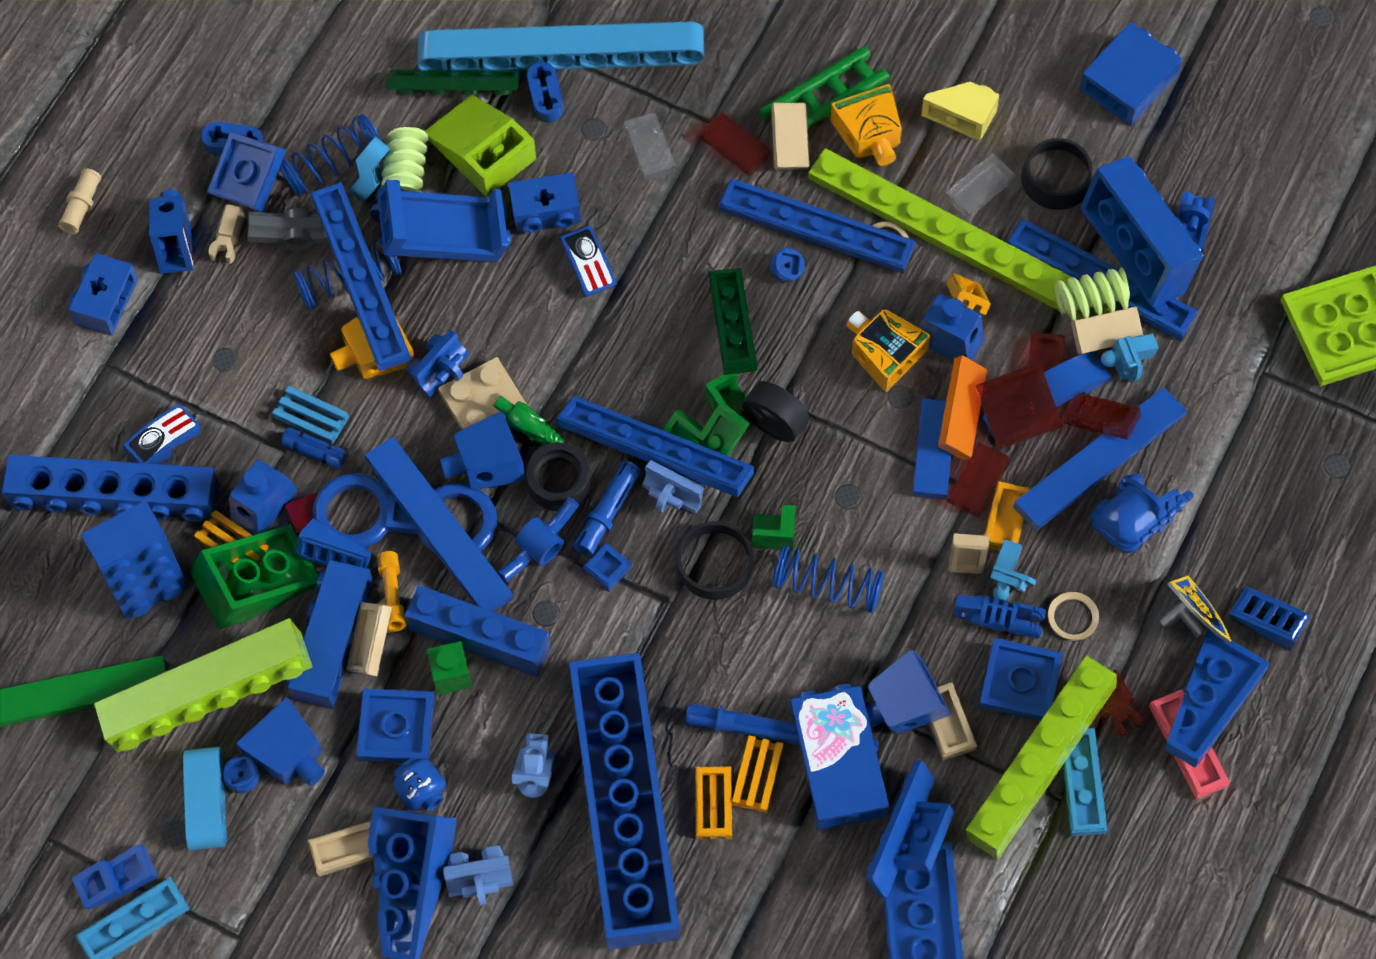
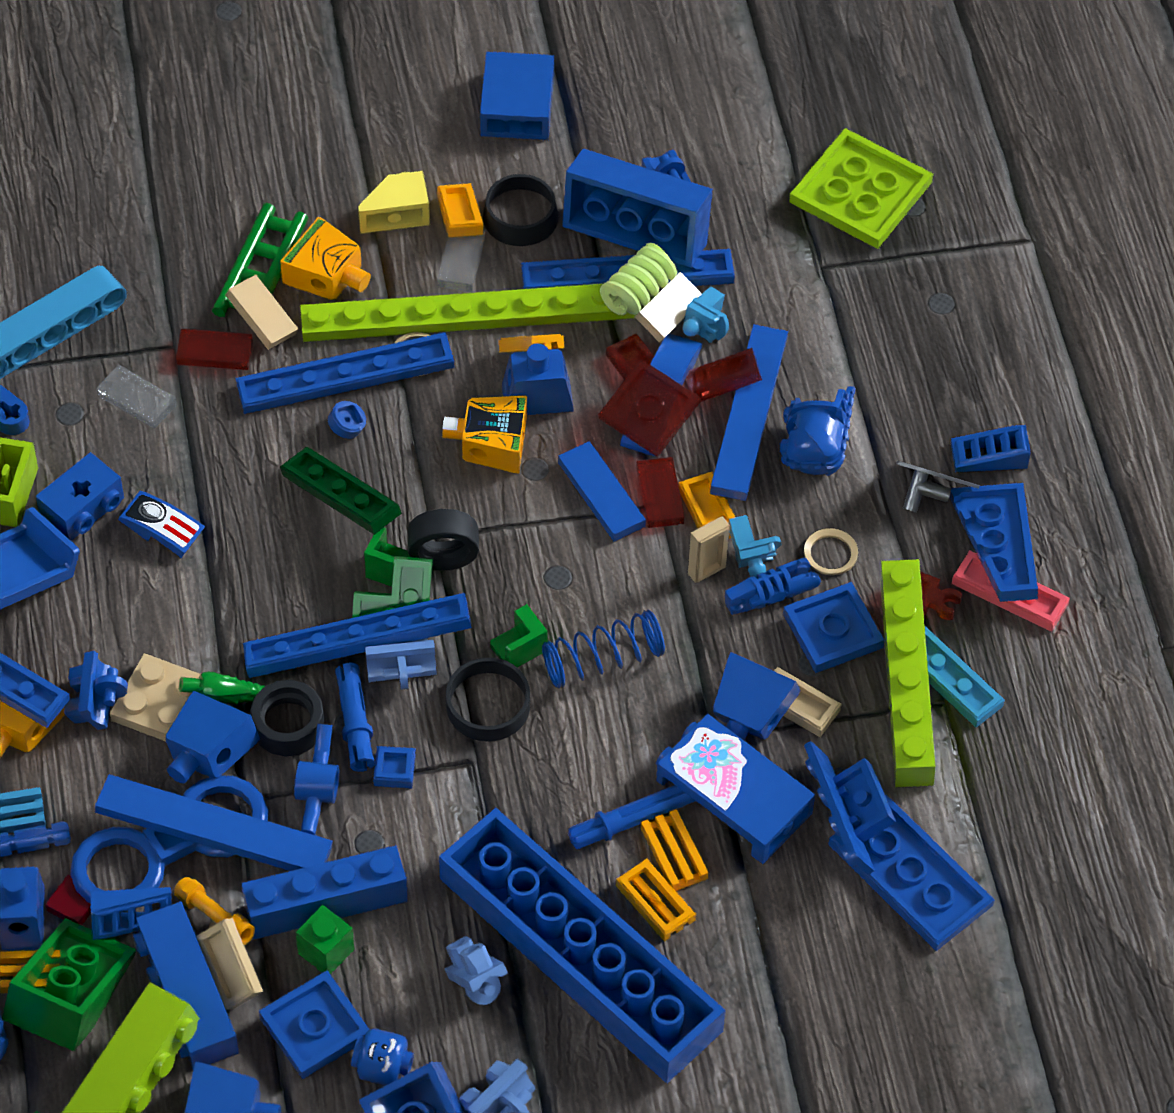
camera: 40 degrees left, 10 degrees down
(962, 408) = (600, 441): orange tile -> none
(1008, 144) = (459, 210): none -> light orange tile

